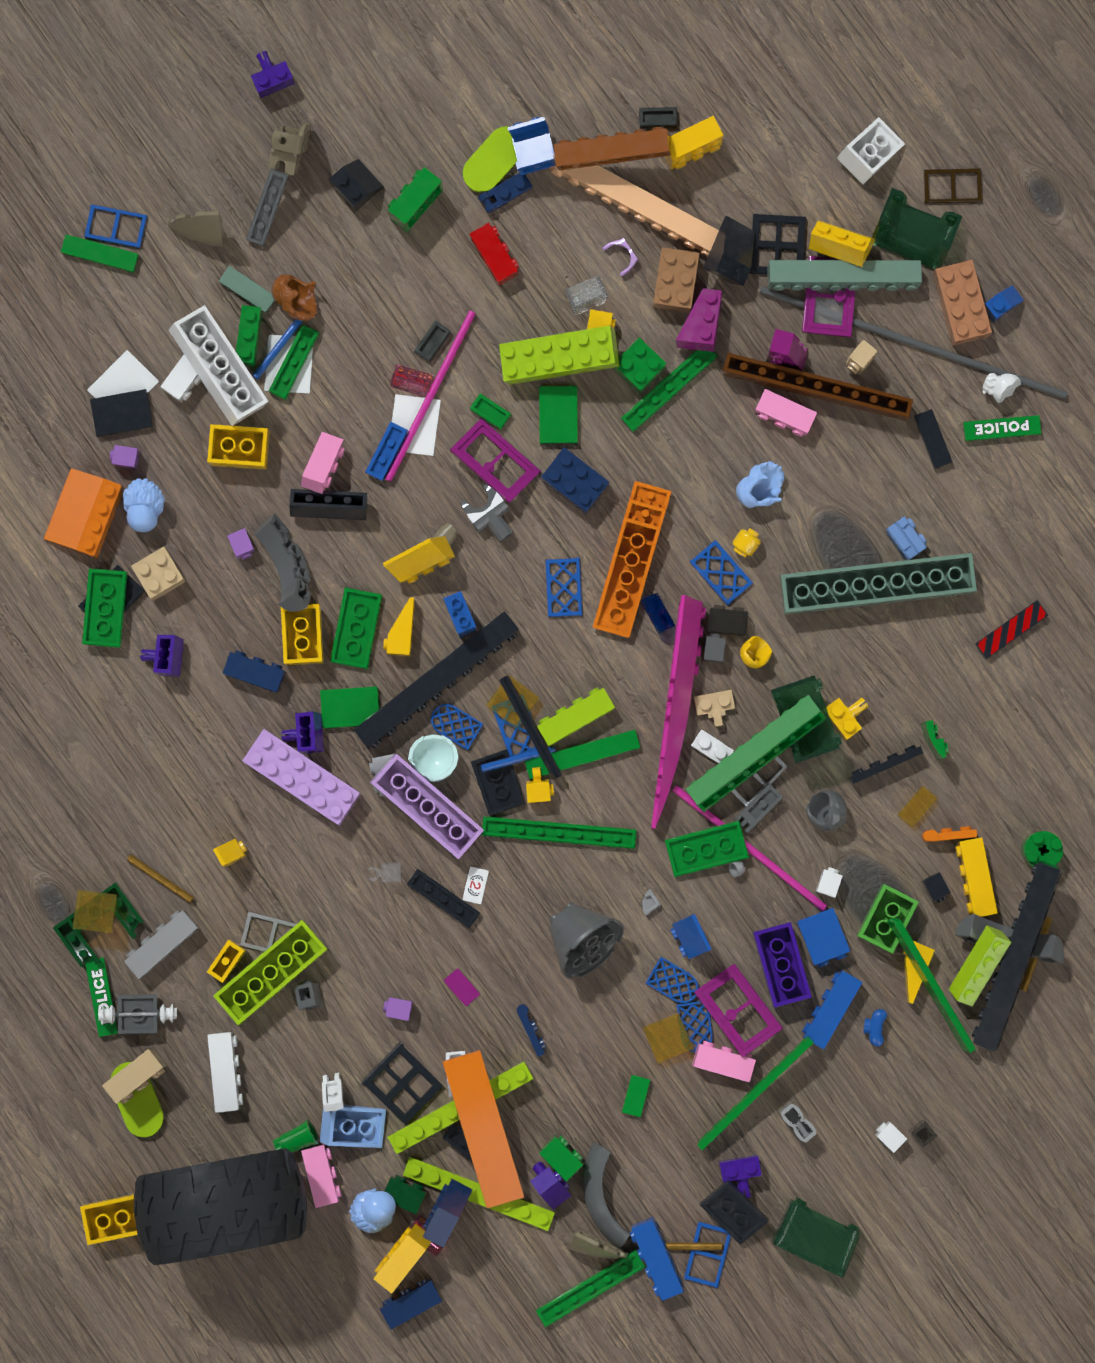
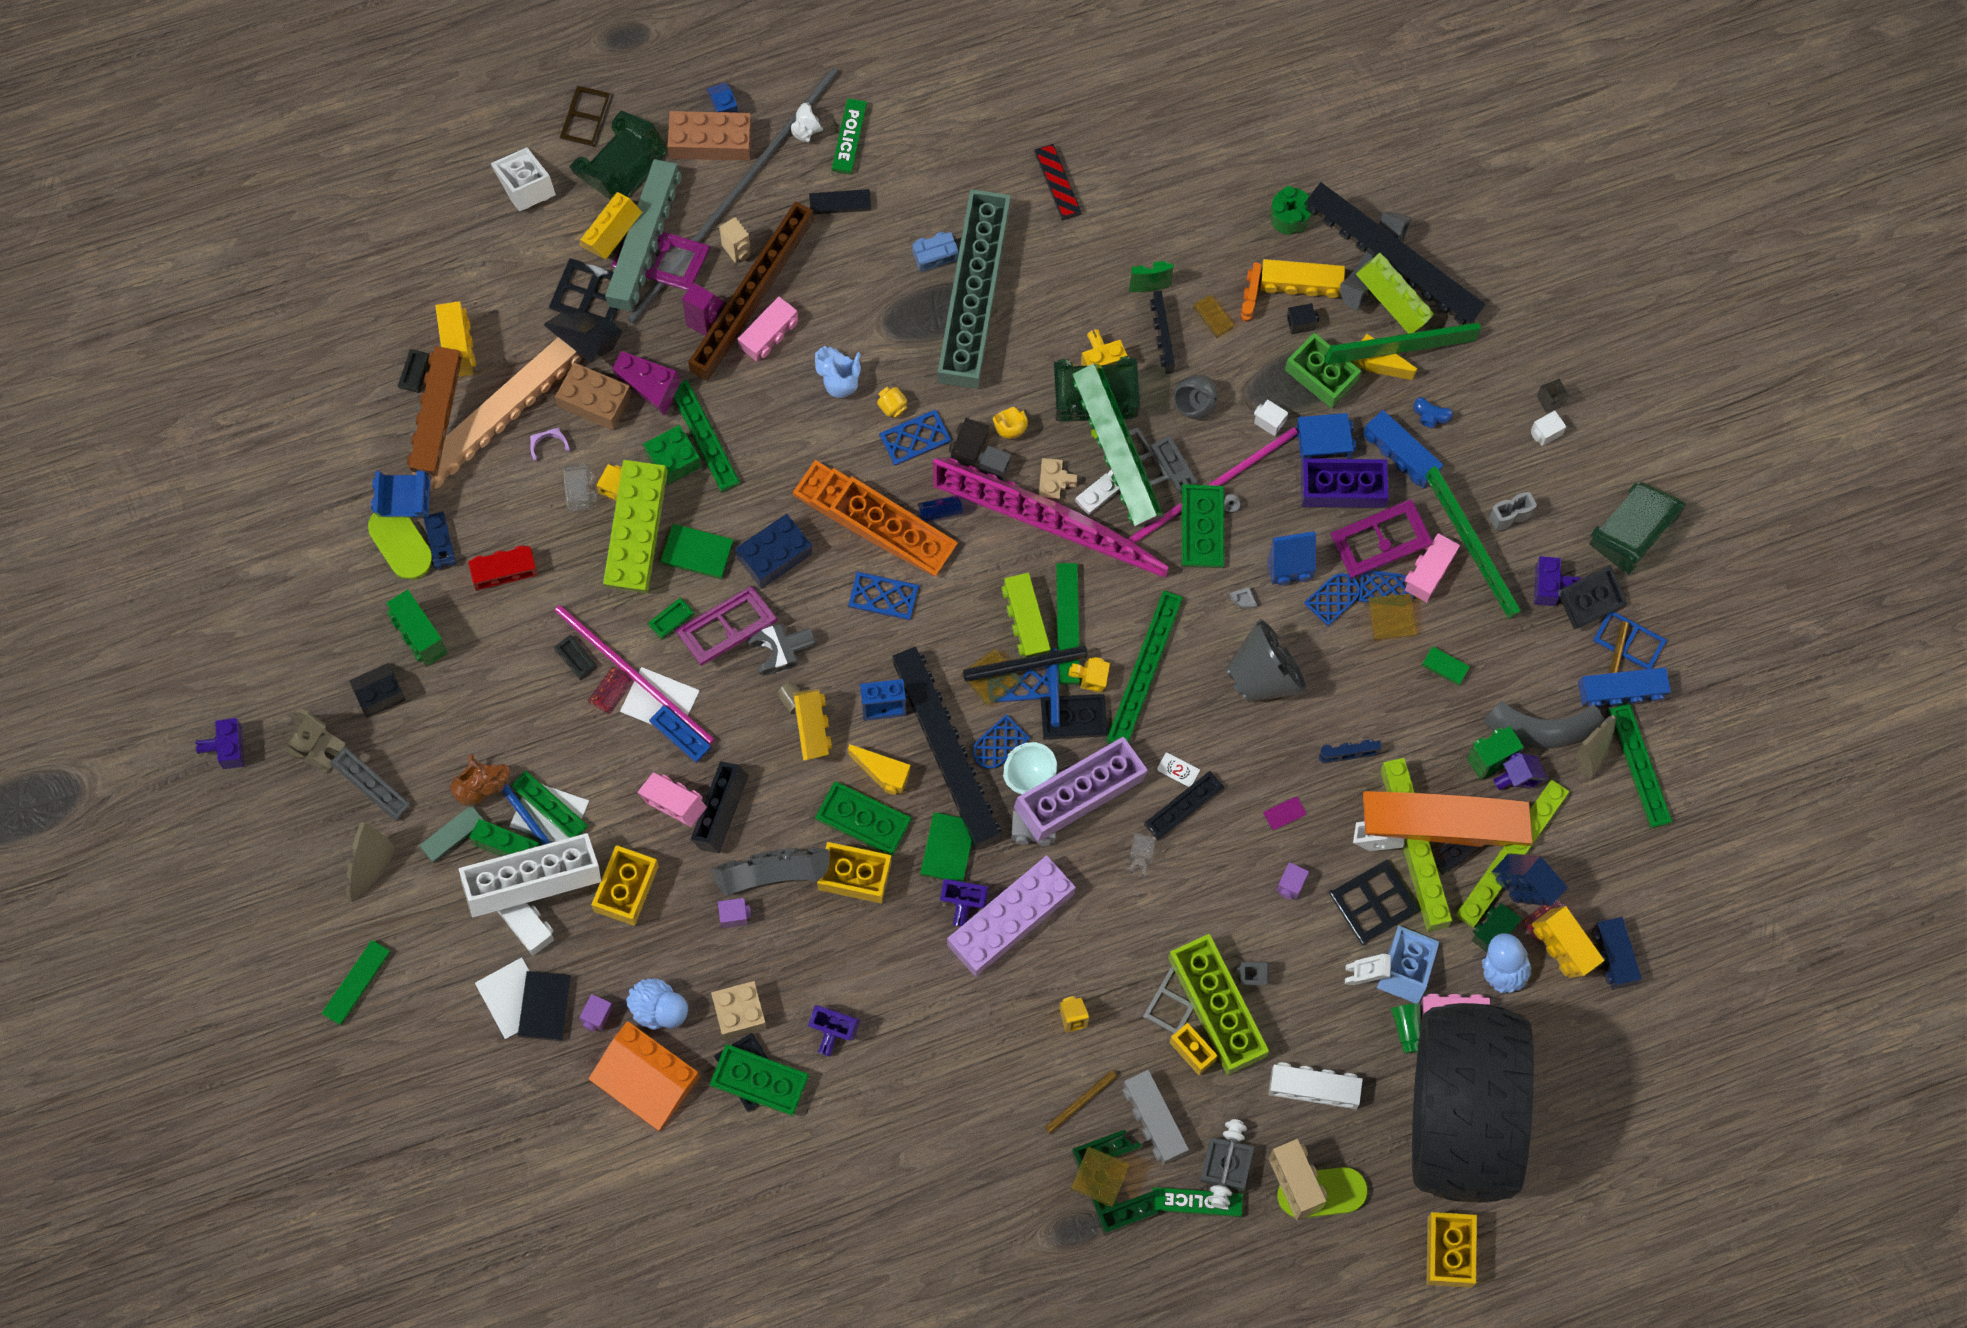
camera: 80 degrees left, 15 degrees down
(115, 227) = (345, 965): blue window -> none
(254, 671) = (879, 936): dark blue brick -> none

